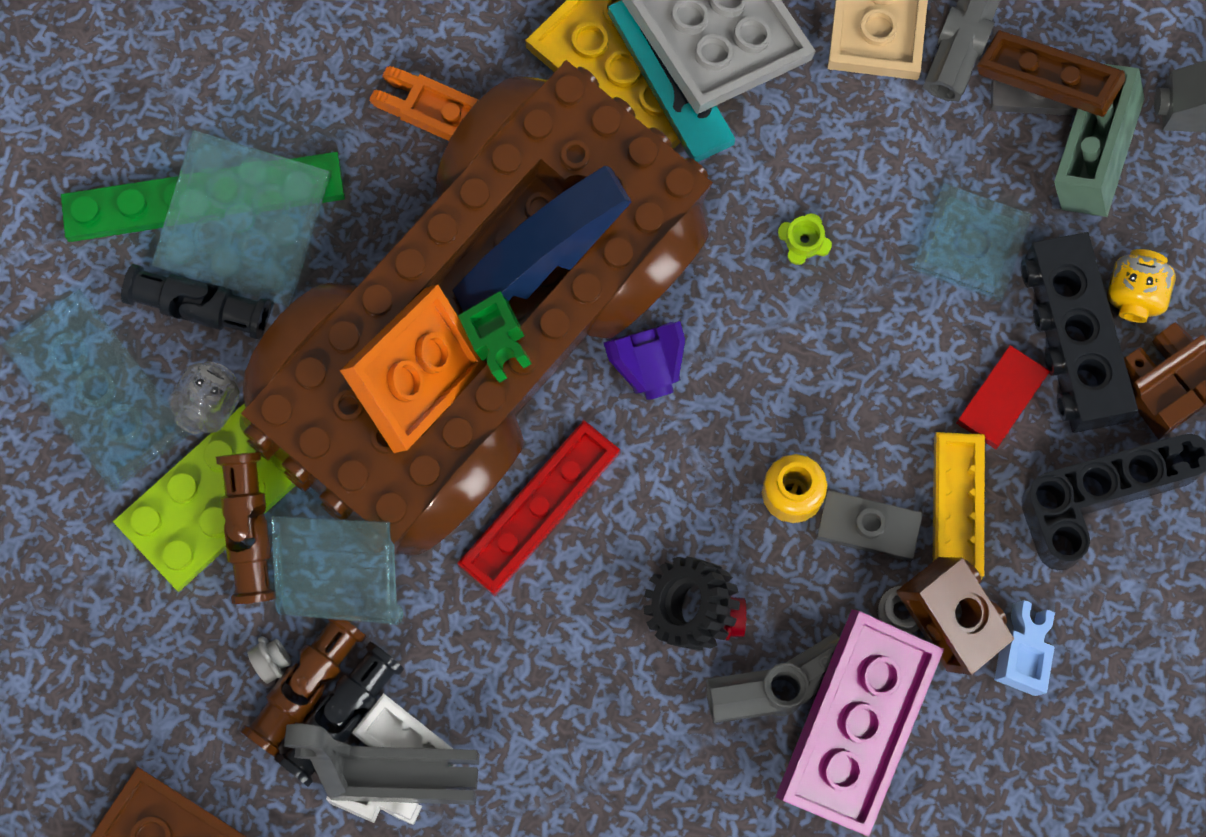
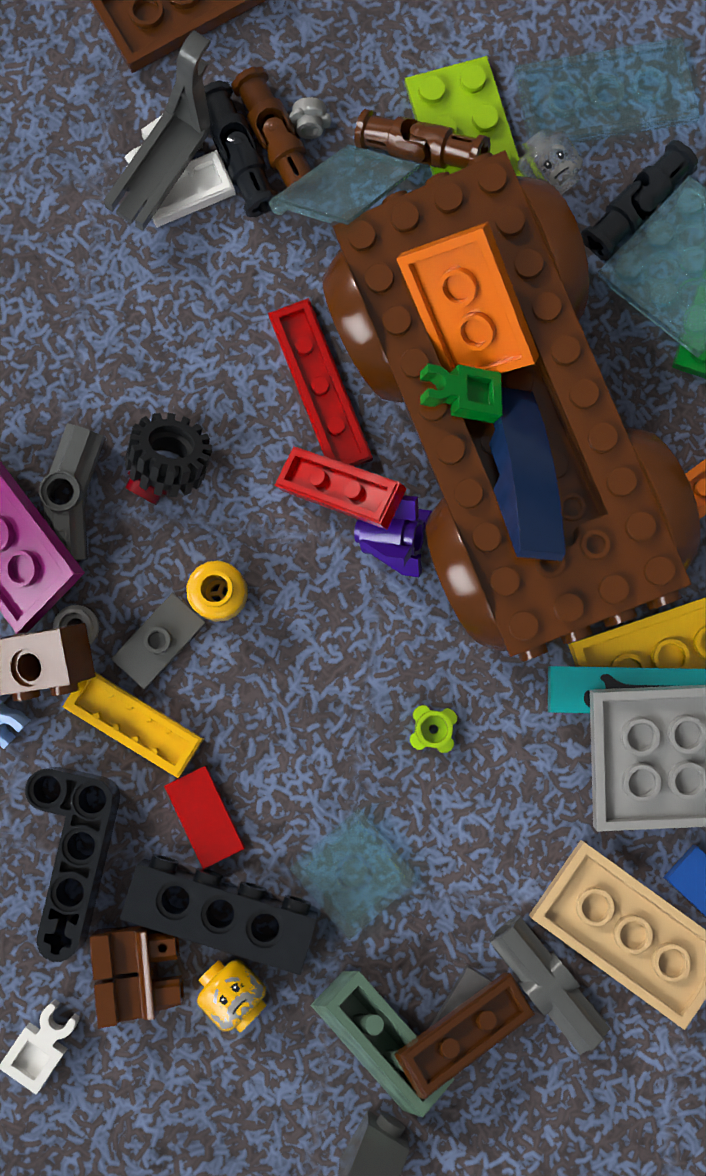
camera: 115 degrees right, 10 degrees up
(633, 426) = (341, 487): none -> red tile

